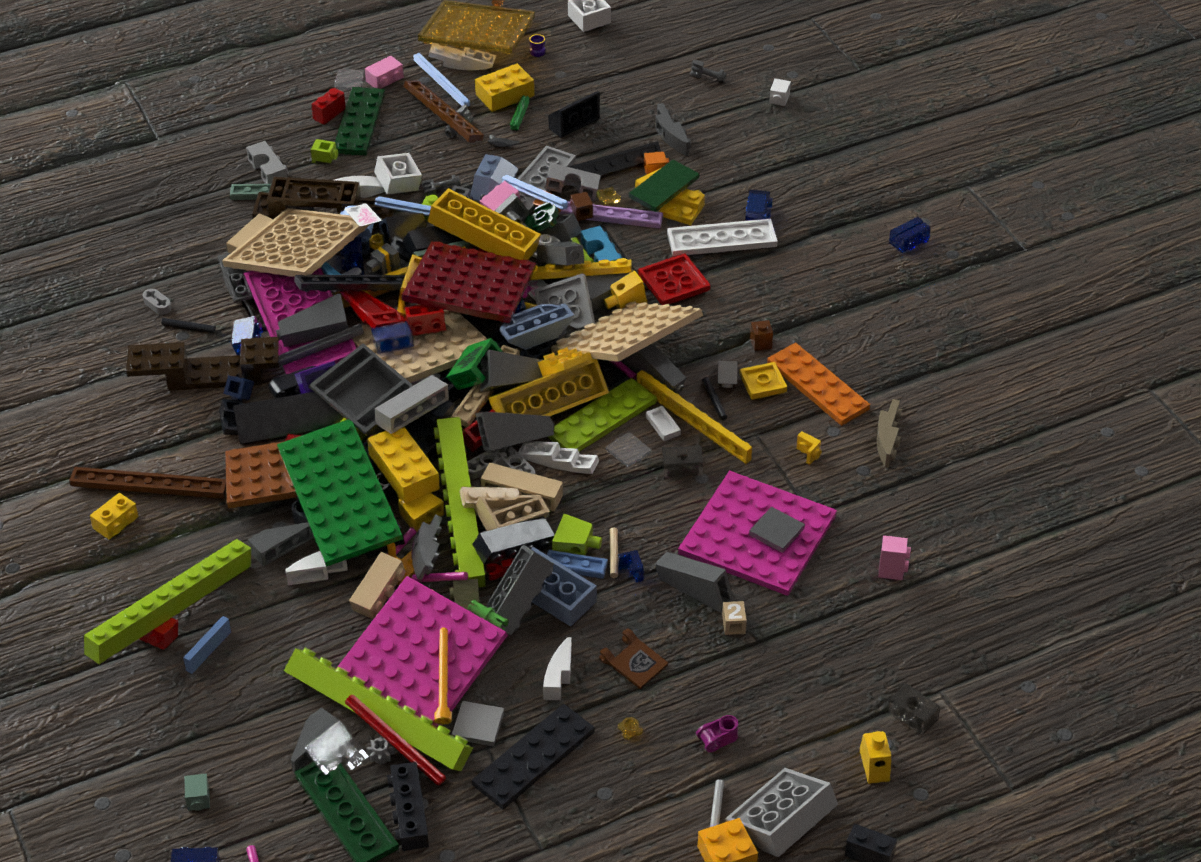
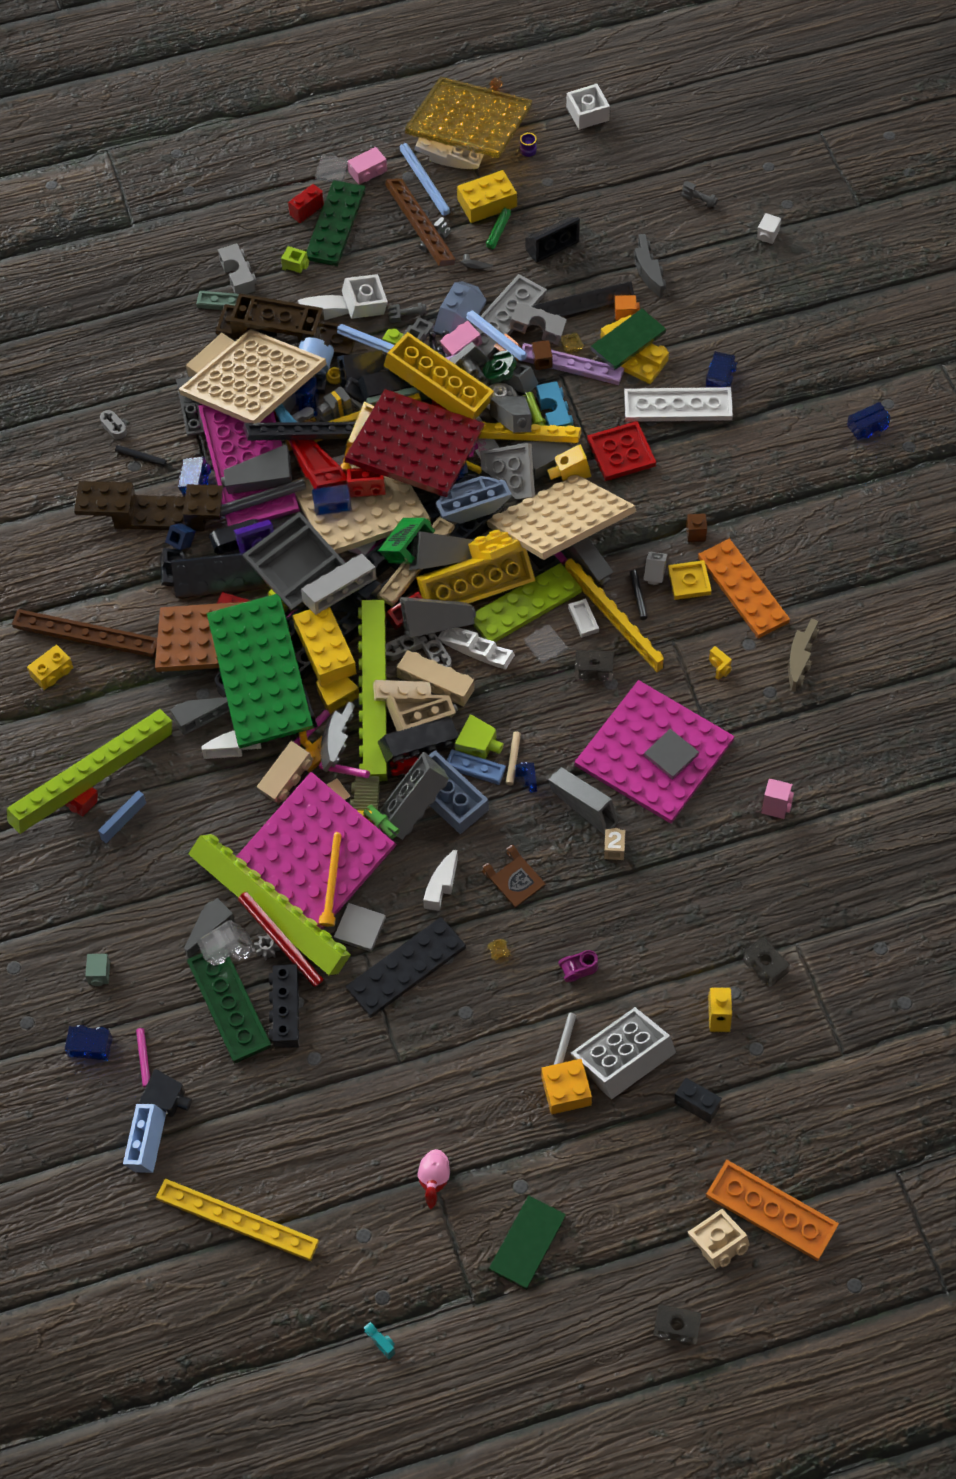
camera: 10 degrees right, 15 degrees up
(363, 215) = (320, 353): white sticker -> none

